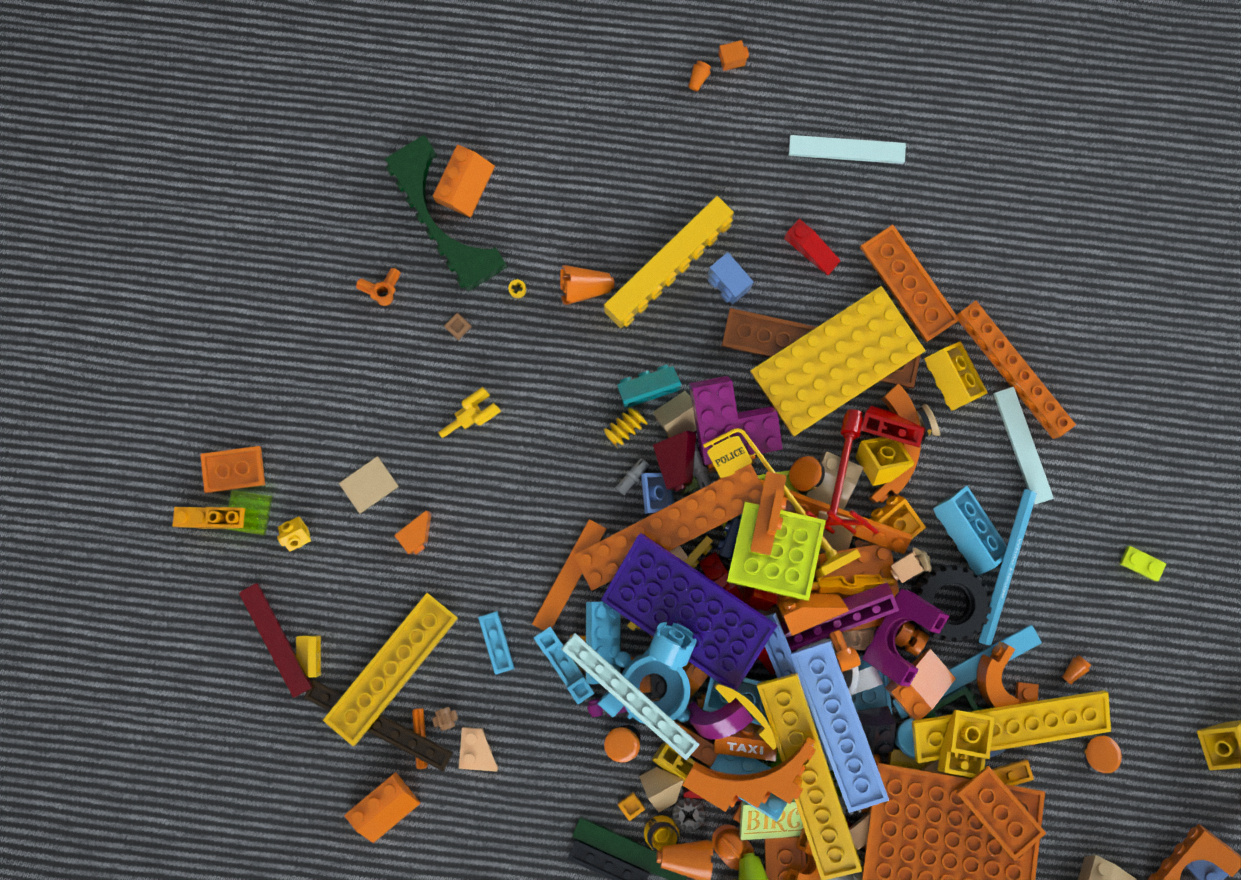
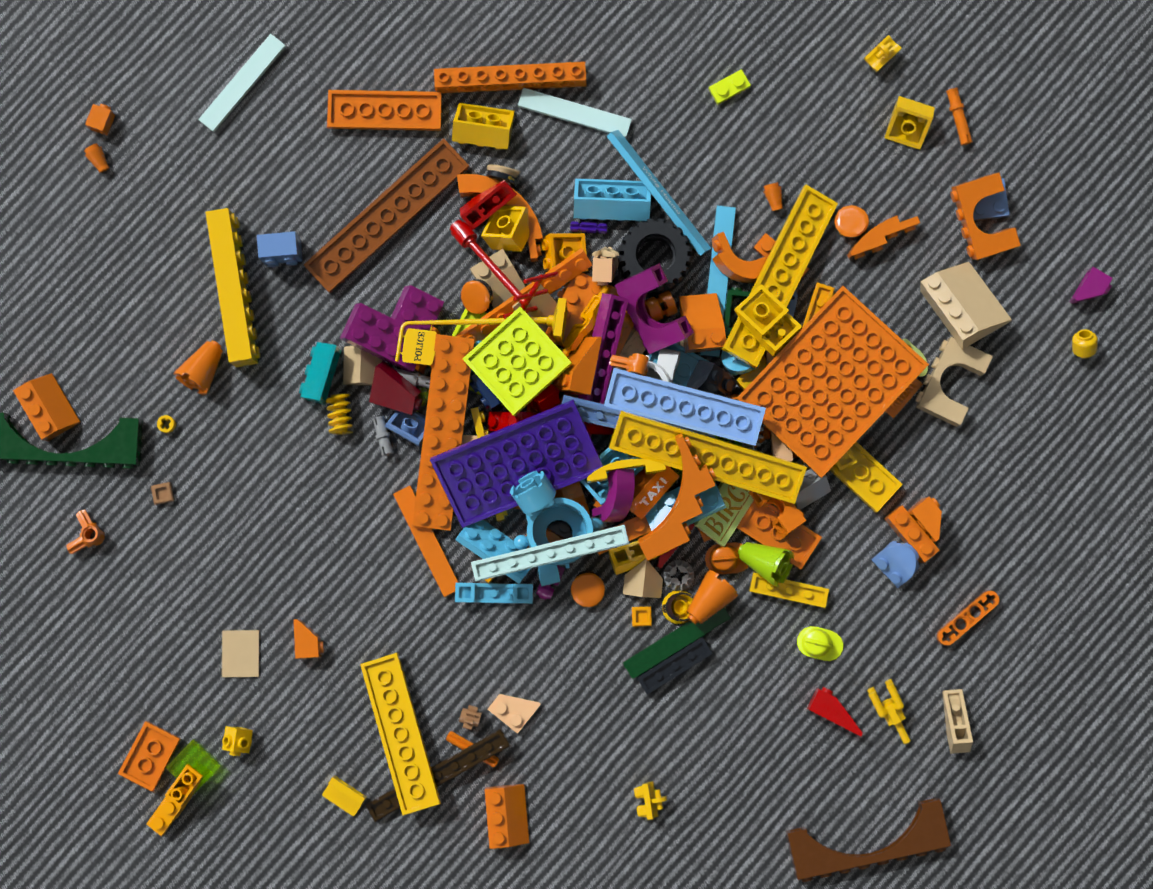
camera: 60 degrees left, 0 degrees up
(275, 640) = (312, 813): dark red tile -> none
(471, 412) = (241, 530): yellow plant -> none
(496, 642) = (439, 636): medium azure tile -> none
(768, 514) = (485, 348): orange bracket -> none
(812, 247) = (301, 165): red slope -> none
(837, 361) = (405, 210): yellow plate -> none
(933, 526) = (588, 227): none -> dark purple axle
(1001, 813) = (834, 329): orange plate -> none
(1109, 787) = (875, 238): none -> orange slope

